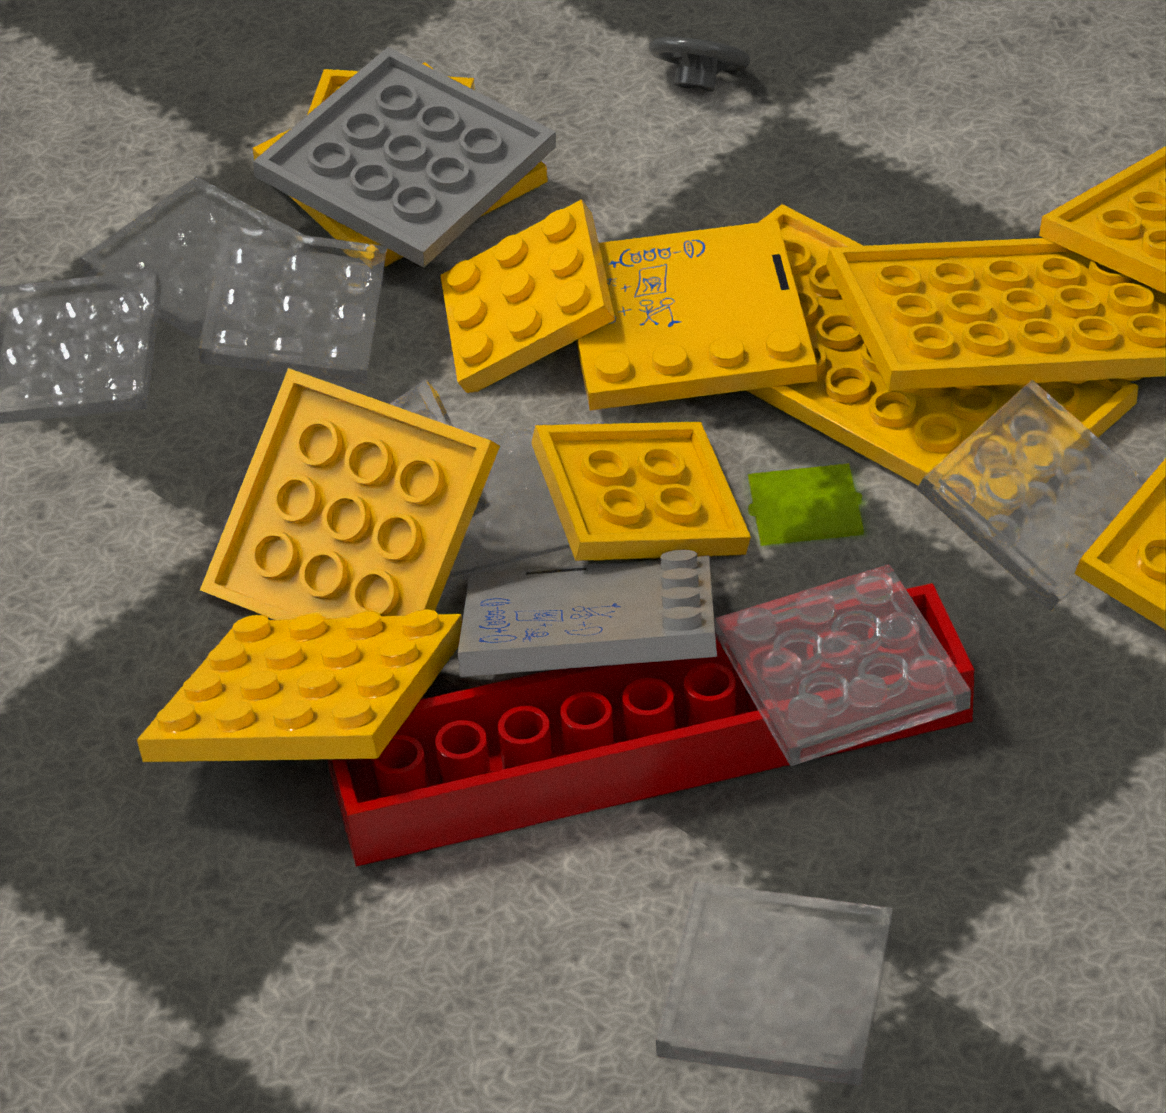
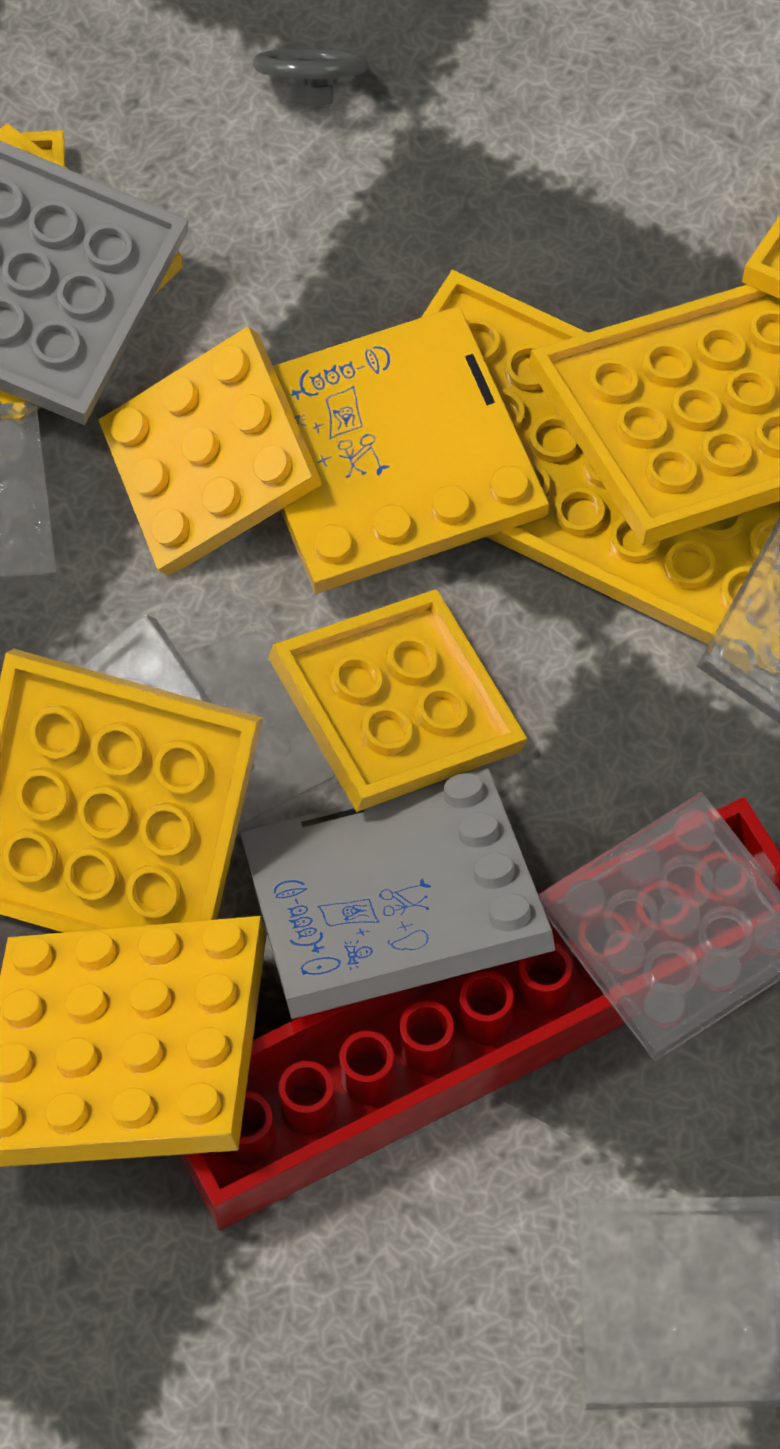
camera: 15 degrees left, 20 degrees up
(805, 504) = (567, 673): clear neon green piece -> none

